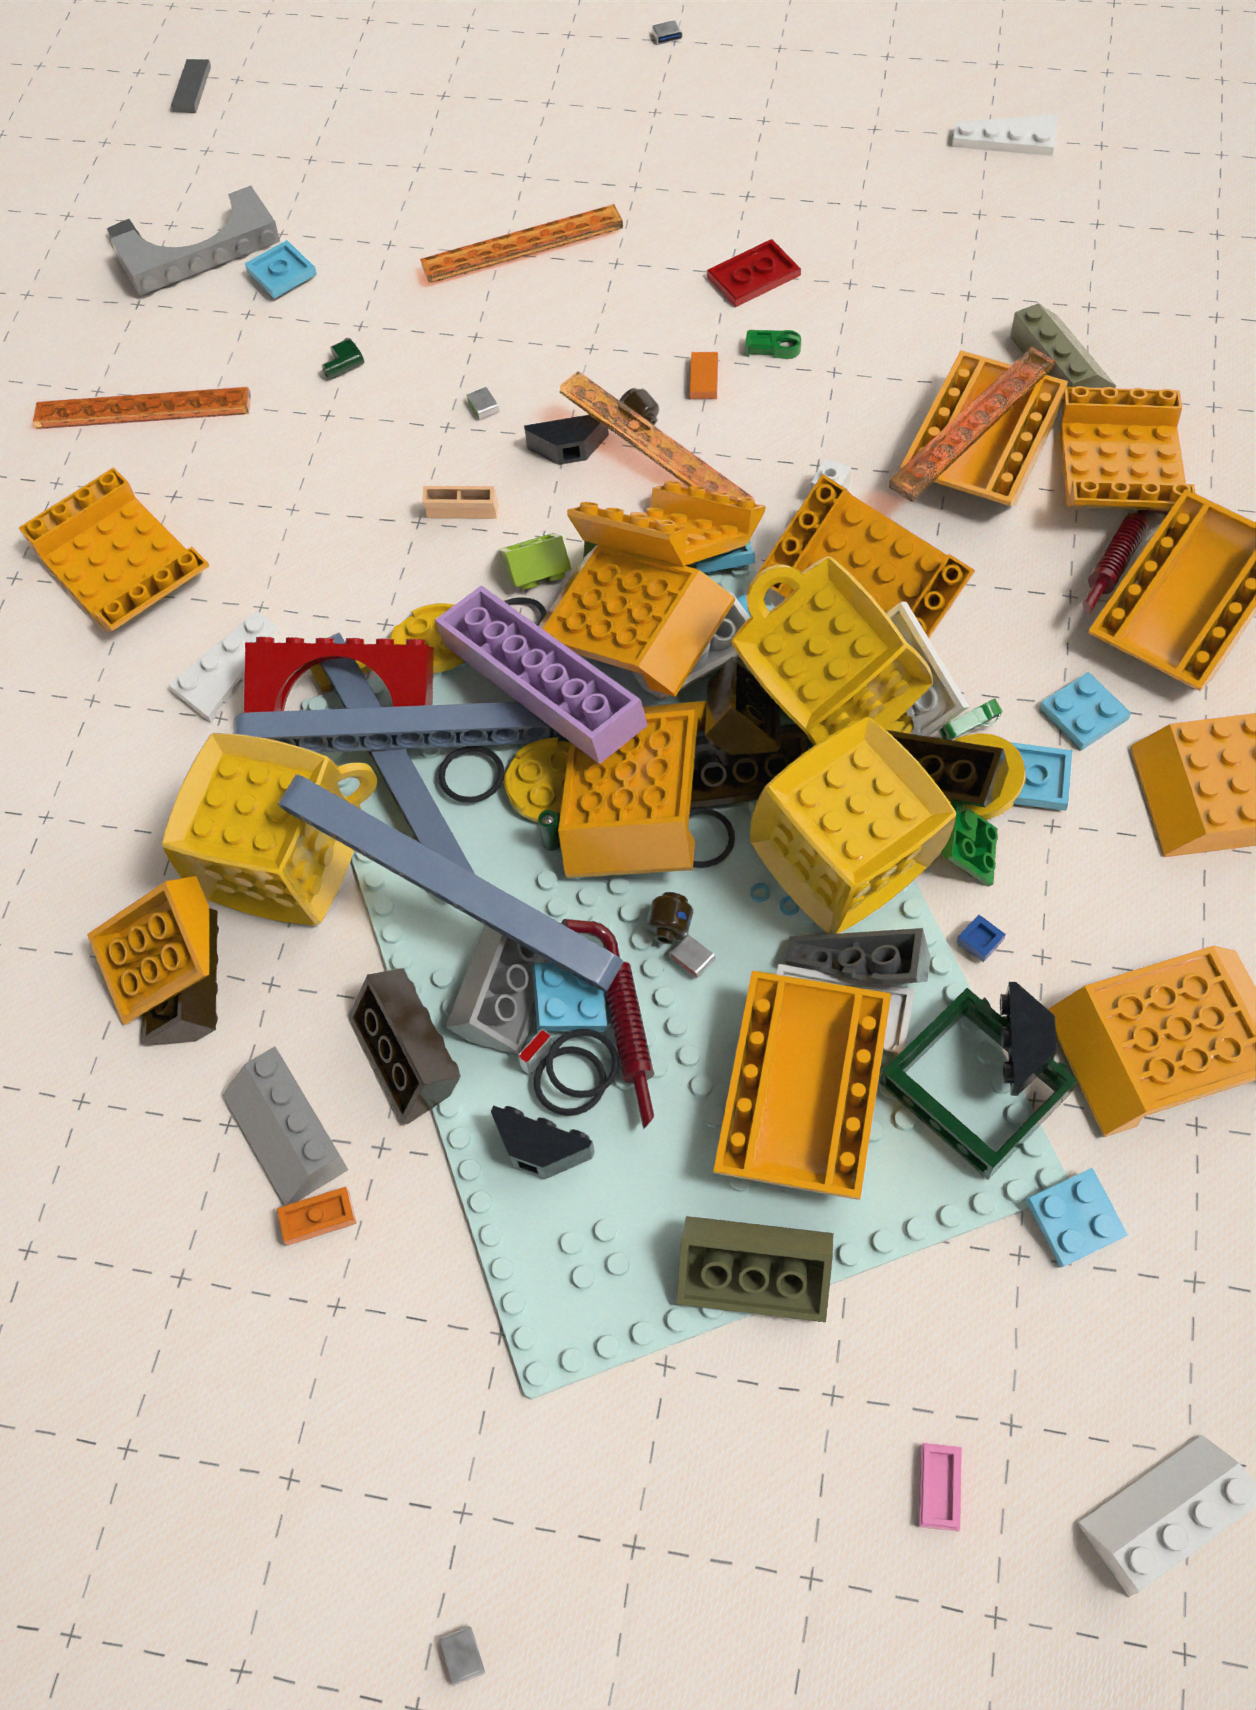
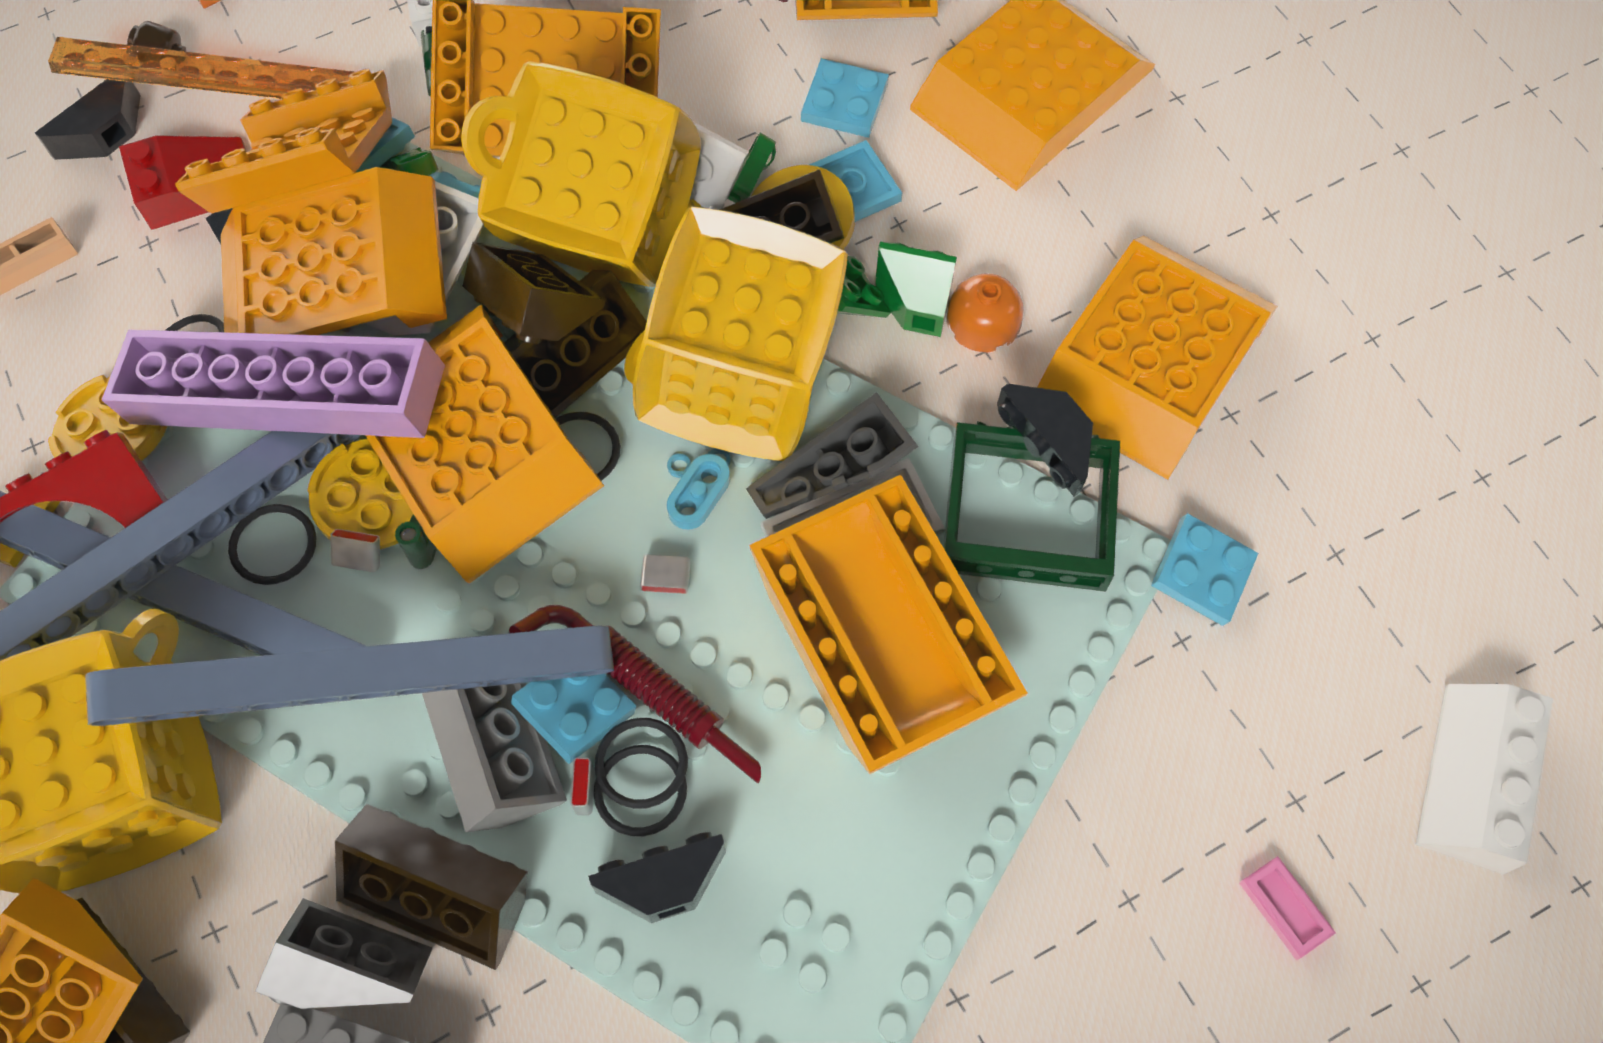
camera: 45 degrees left, 5 degrees up
(320, 1049) = (340, 962): none -> flat silver slope
(514, 810) = (355, 550): none -> flat silver piece
(536, 560) = (163, 271): lime slope -> none
(587, 485) = (158, 163): none -> red slope
(669, 917) = (615, 550): dark brown head -> none
(736, 581) = (415, 162): none -> green piece
(753, 916) = (696, 493): none -> medium azure plate
(755, 1268) = (974, 836): olive slope -> none
(981, 938) = (922, 369): blue plate -> none
(1021, 877) = (915, 286): none -> slope
(1062, 929) = (985, 312): none -> orange cylinder

